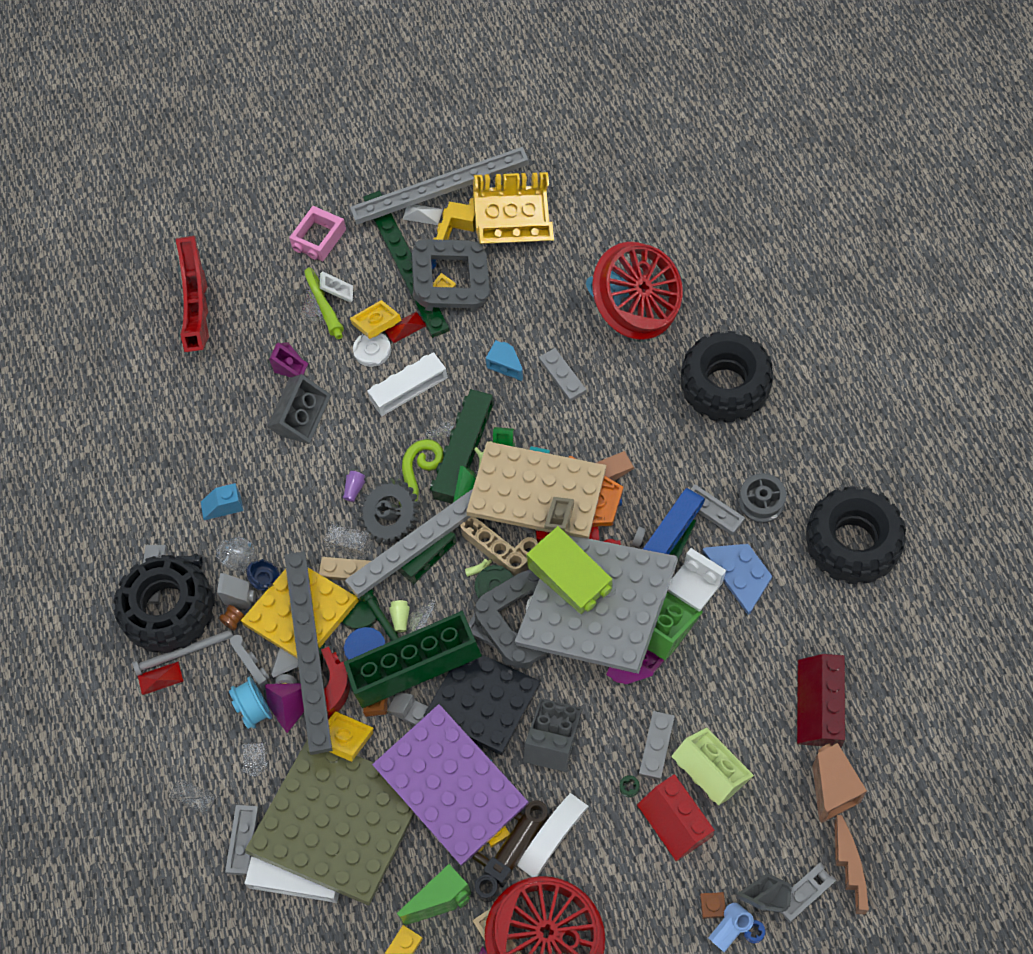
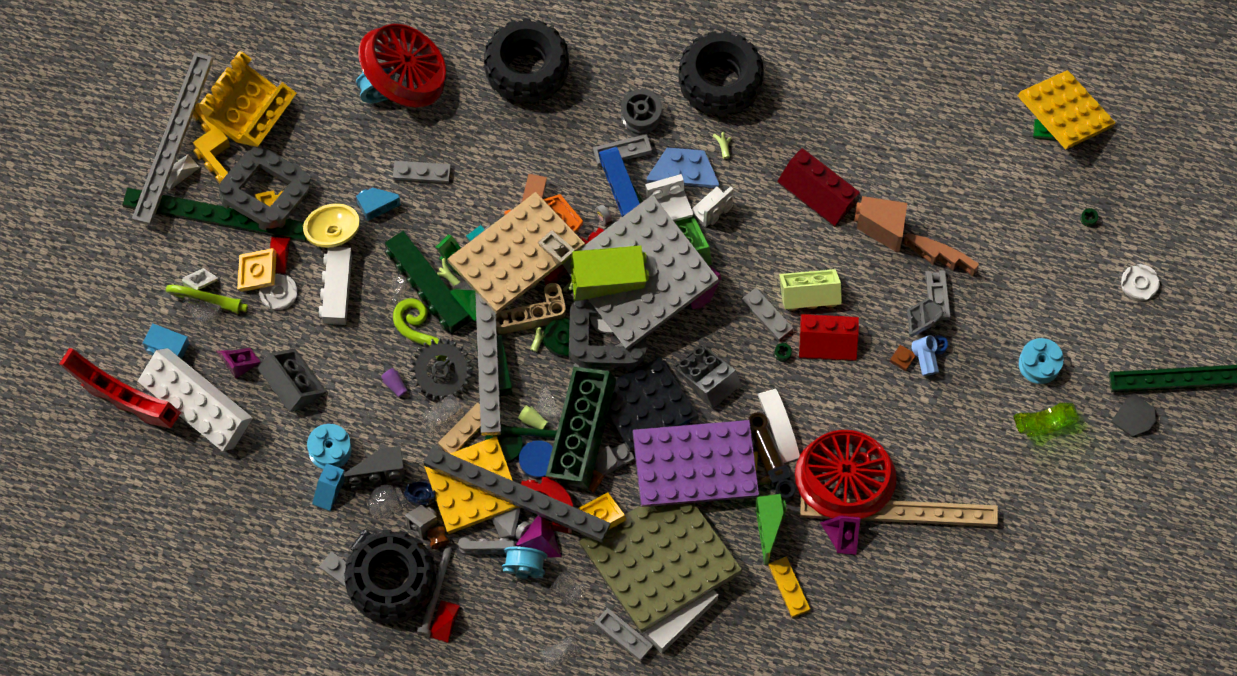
camera: 60 degrees left, 5 degrees up
(225, 354) = (196, 399): none -> white brick
(257, 477) = (329, 436): none -> medium azure wheel
(259, 526) = (378, 469): none -> dark grey slope
(265, 304) = (163, 338): none -> dark azure brick
(323, 218) = (122, 246): bright pink window -> none
(455, 342) = (331, 225): none -> light yellow dish
(723, 622) = (713, 205): none -> white bracket
(793, 589) = (723, 144): none -> yellowish green bar

